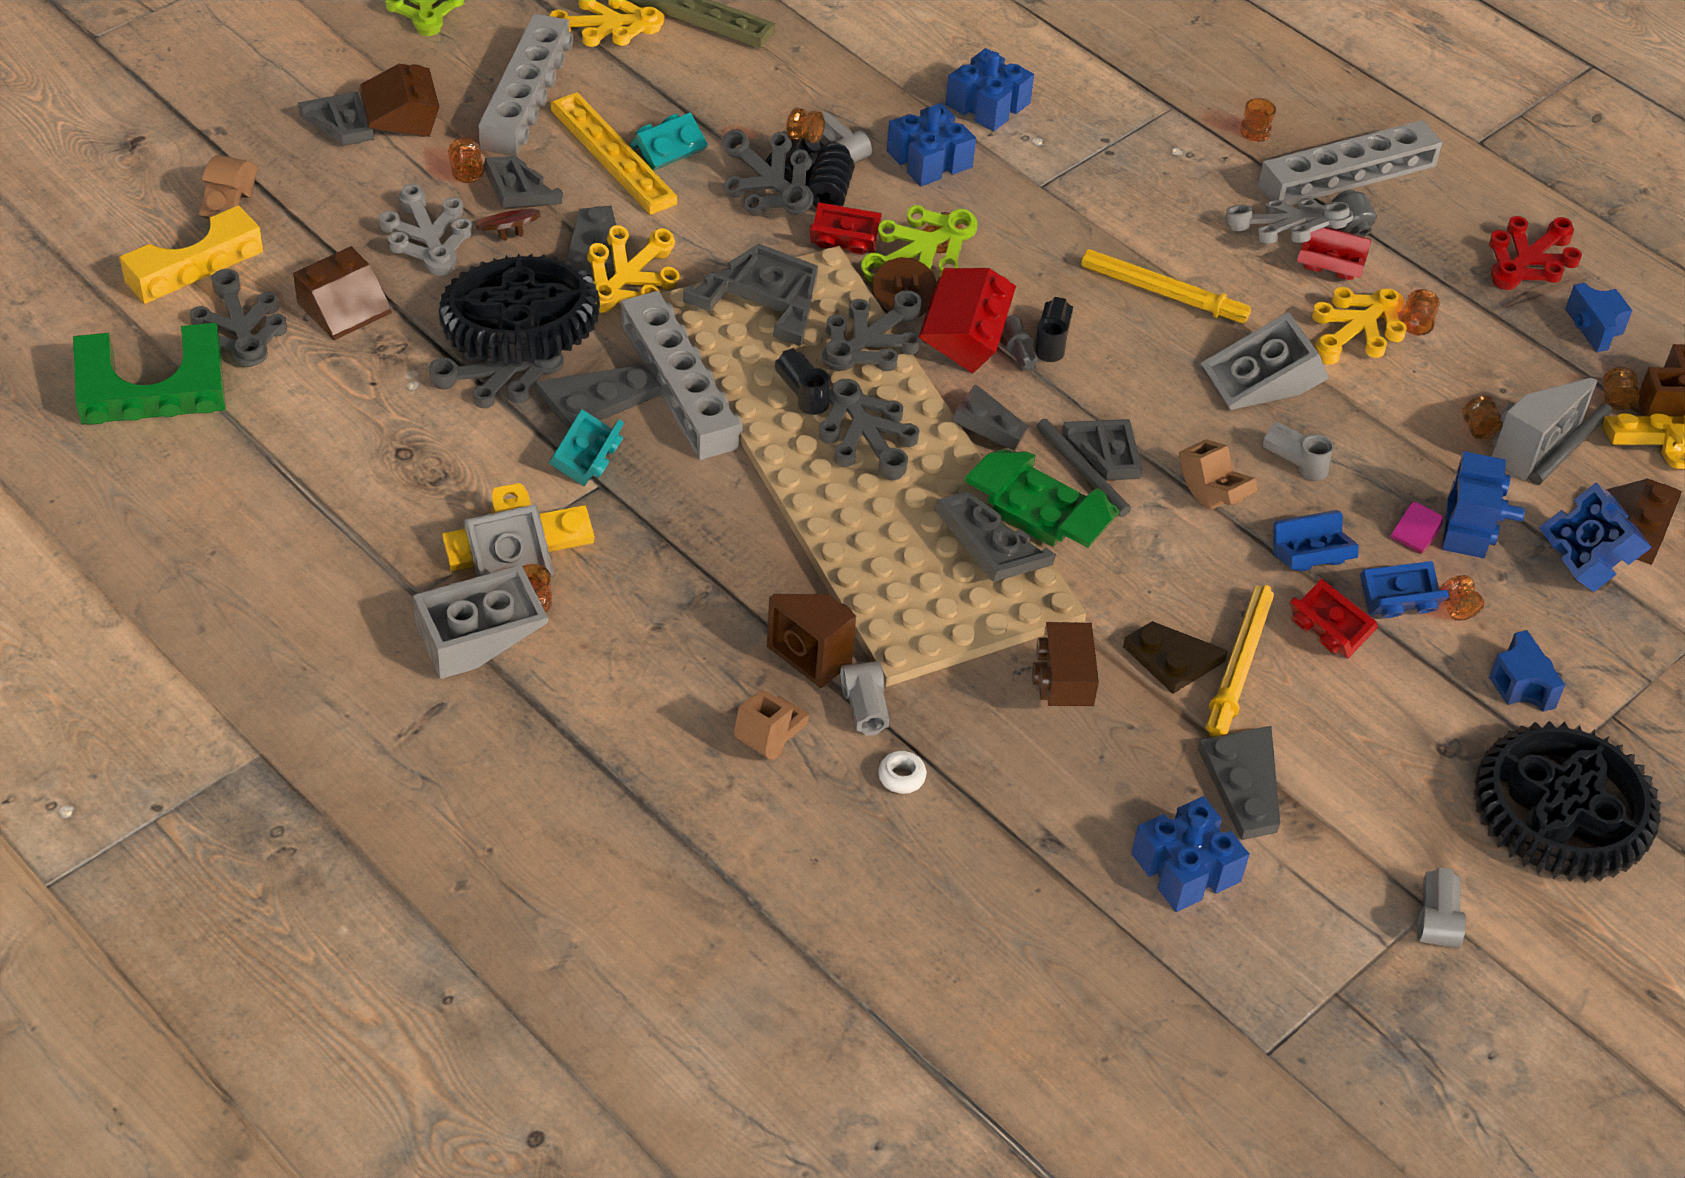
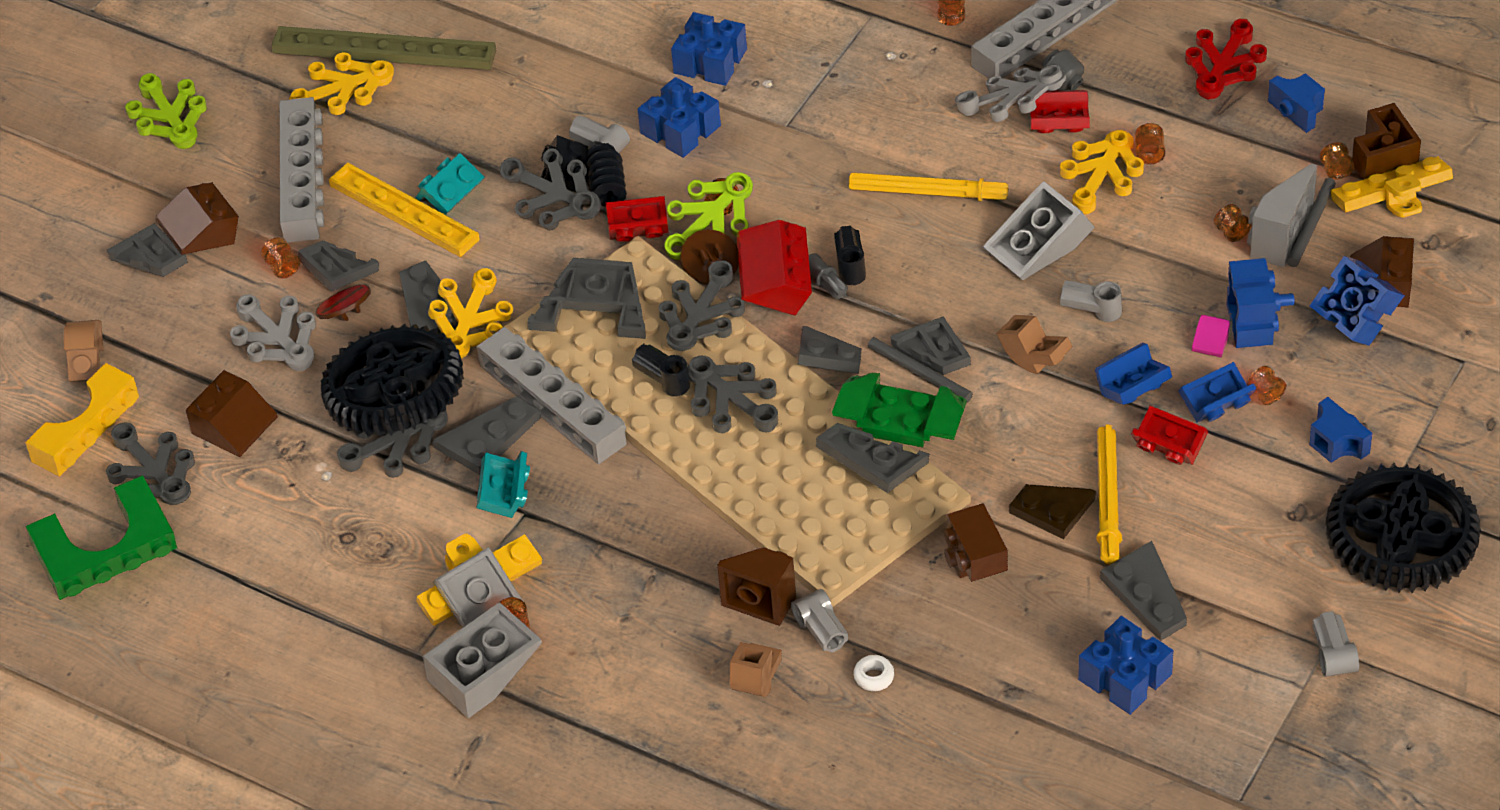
camera: 10 degrees left, 0 degrees up
(805, 125) = (568, 135): clear orange wheel -> none

